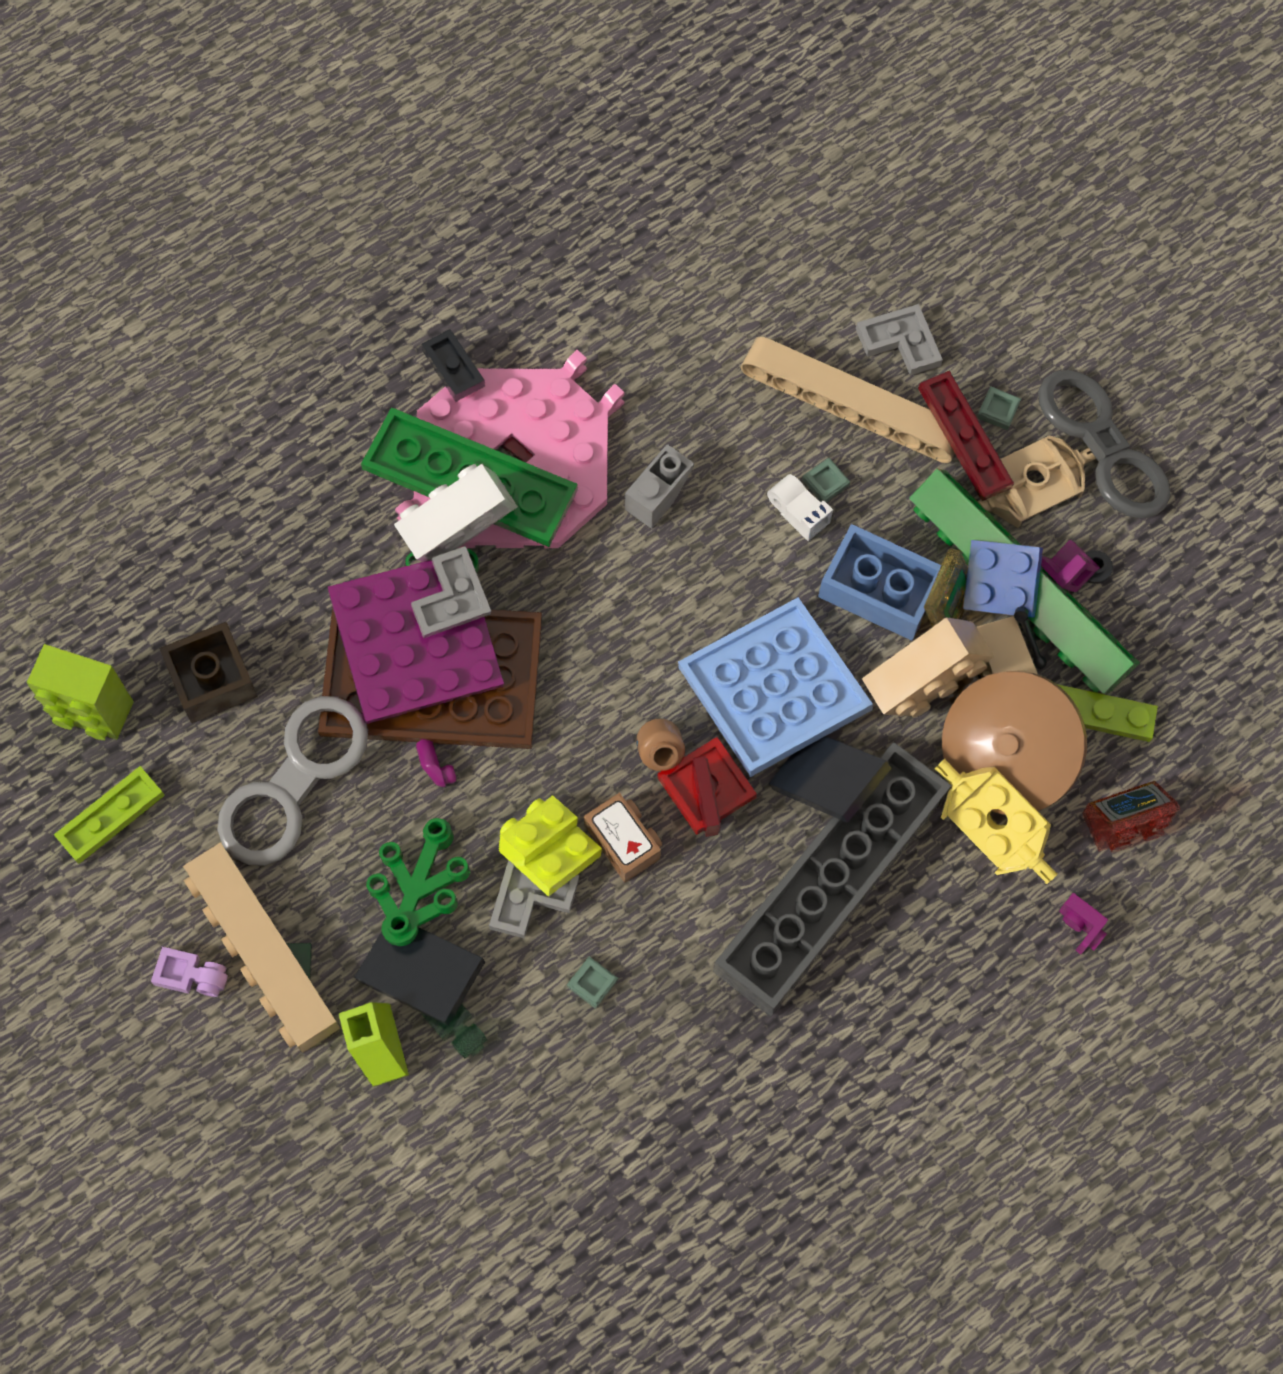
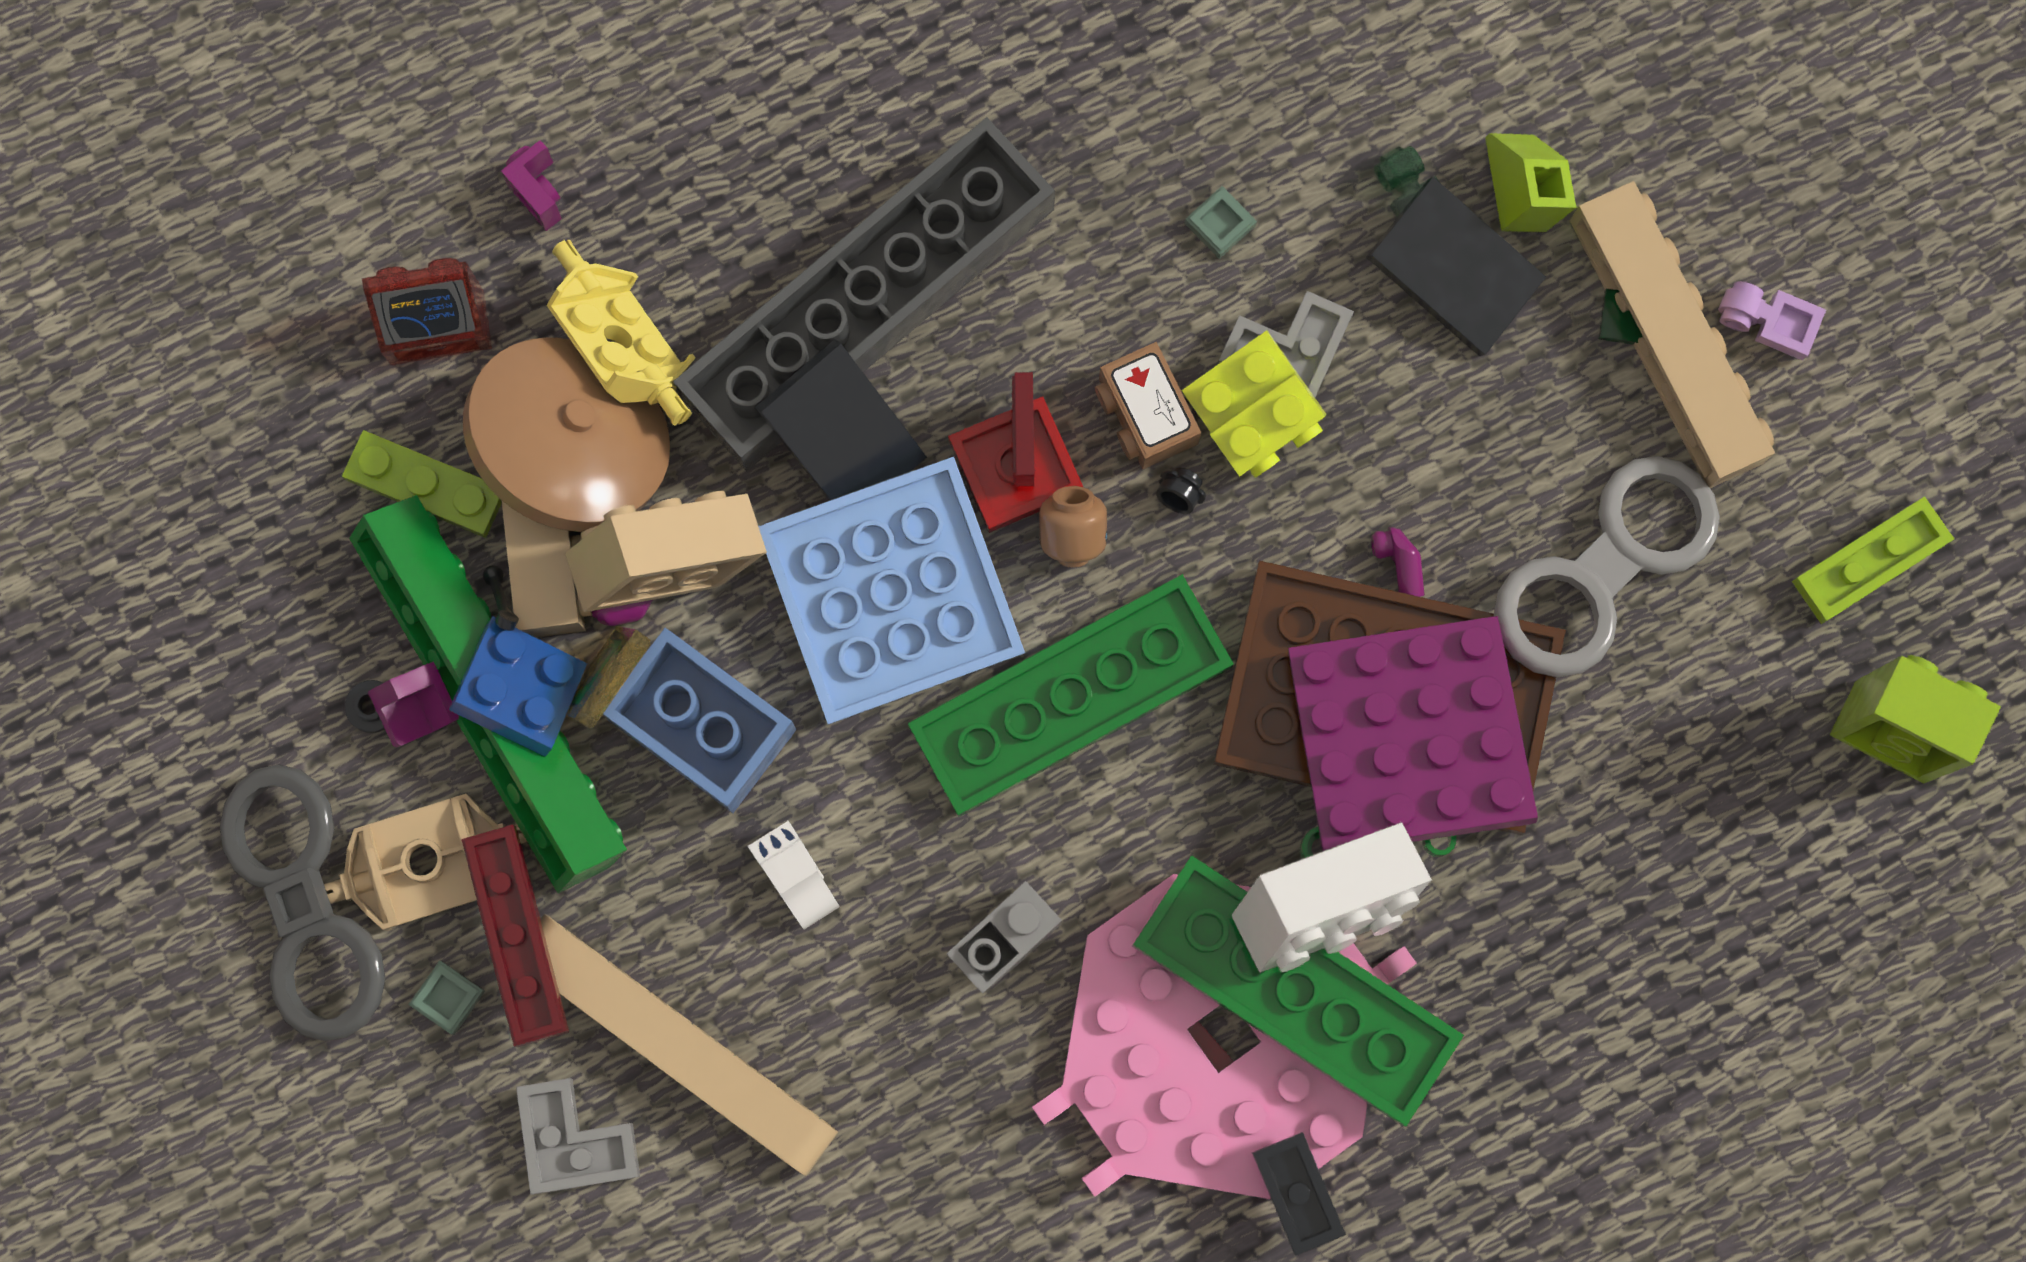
camera: 170 degrees left, 10 degrees up
(208, 672) = (1720, 741): dark brown brick -> none
(418, 885) = (1449, 380): green plant -> none
(460, 599) = (1342, 758): light grey plate -> none
(591, 787) = (1180, 490): none -> black plate
(642, 643) = (1070, 695): none -> green plate
(826, 480) = (743, 917): sand green tile -> none

